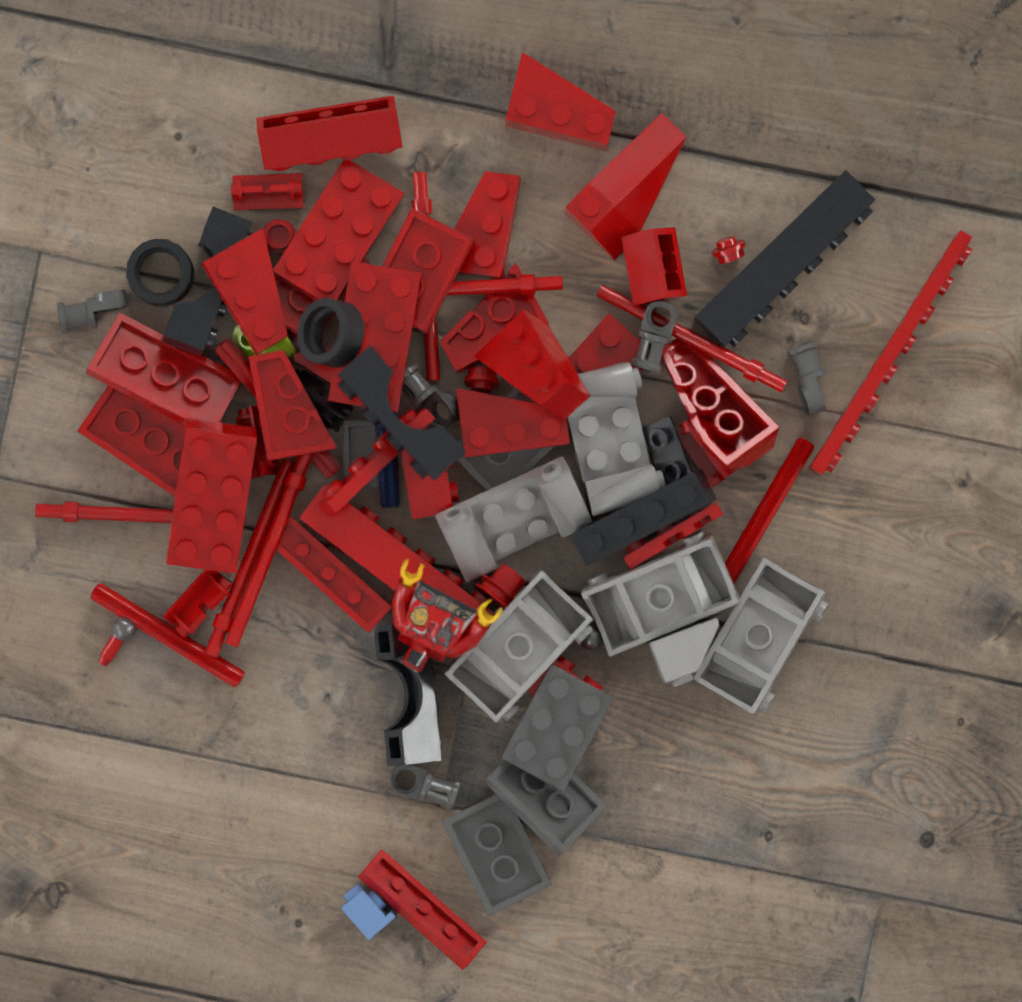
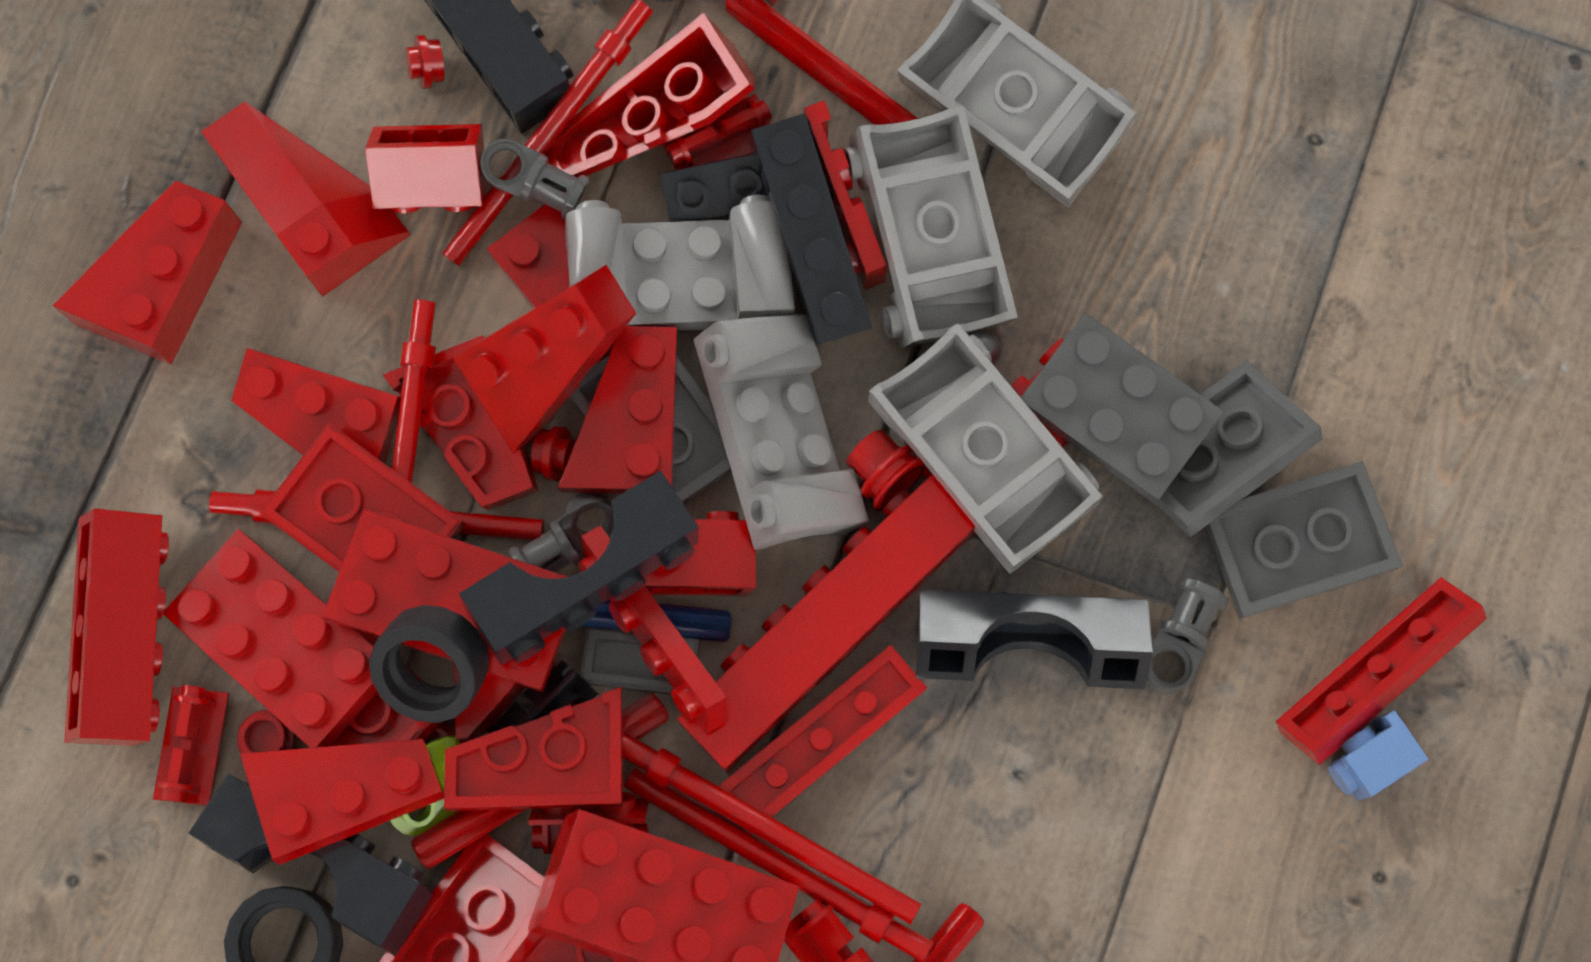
camera: 80 degrees left, 10 degrees down
(434, 621) = (927, 565): torso -> none
(682, 651) = (1027, 202): light grey slope -> none

